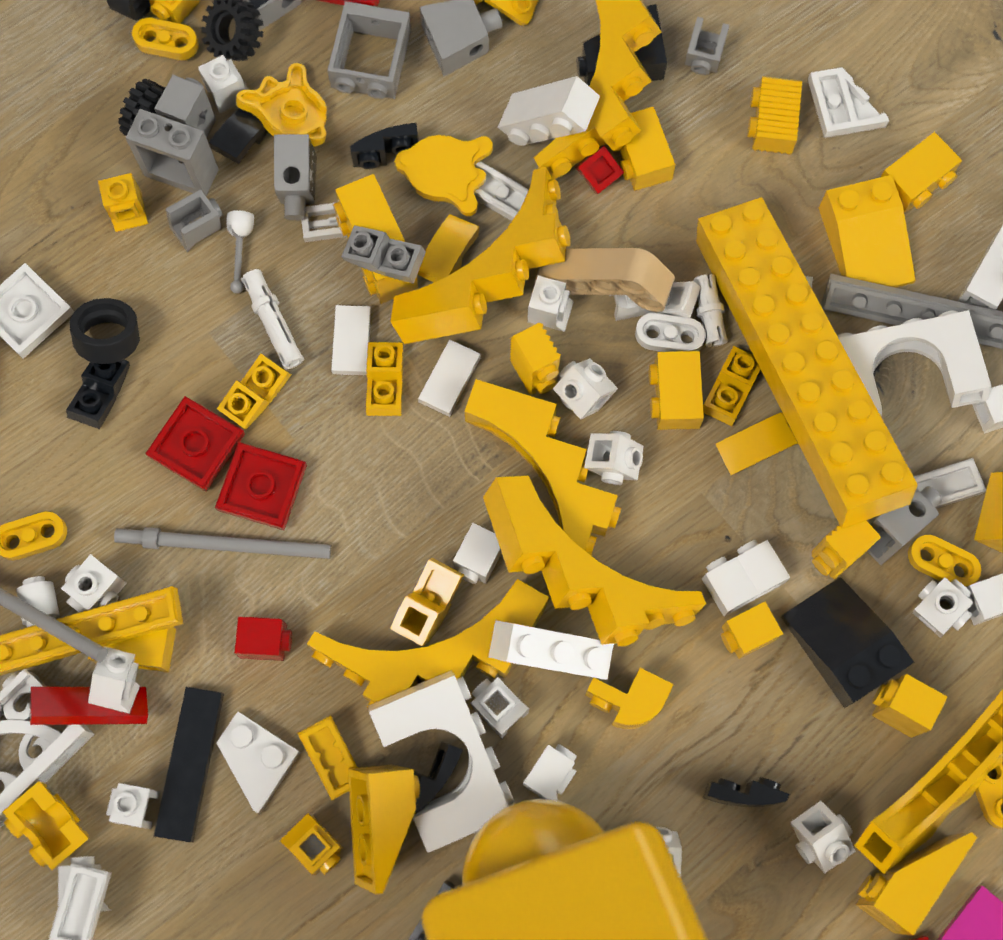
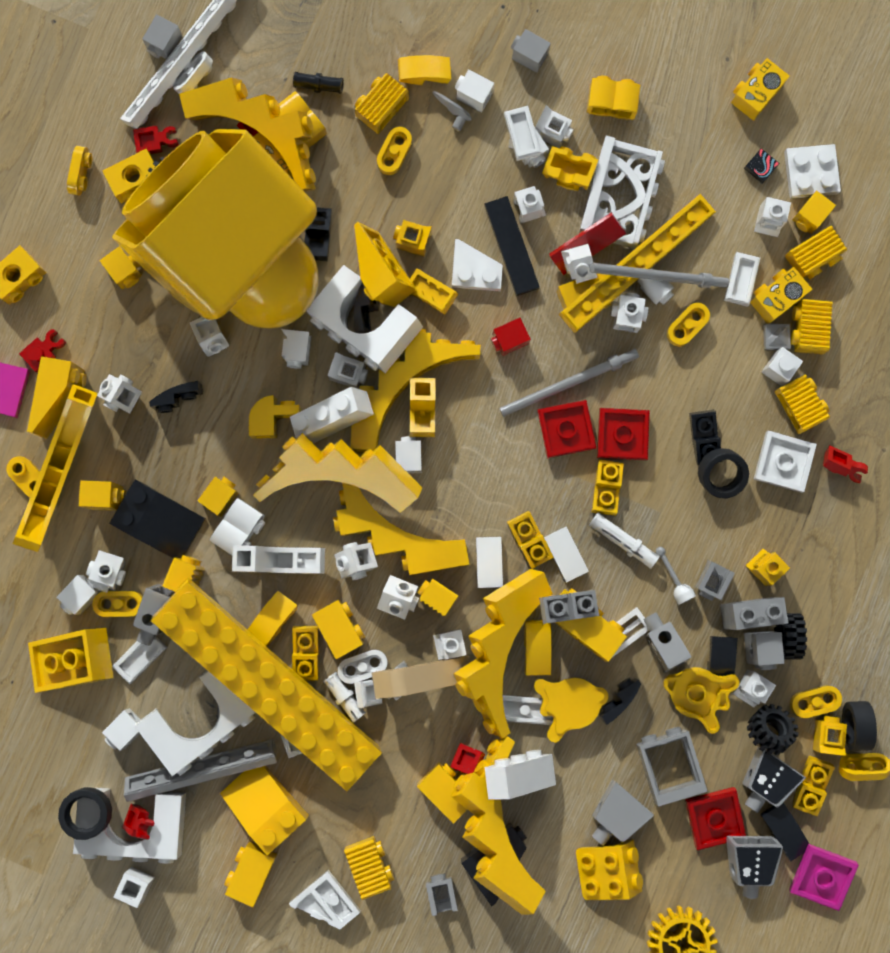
camera: 150 degrees right, 10 degrees up
(32, 898) = (554, 127): none -> white window
(725, 515) = (278, 560): none -> white arch

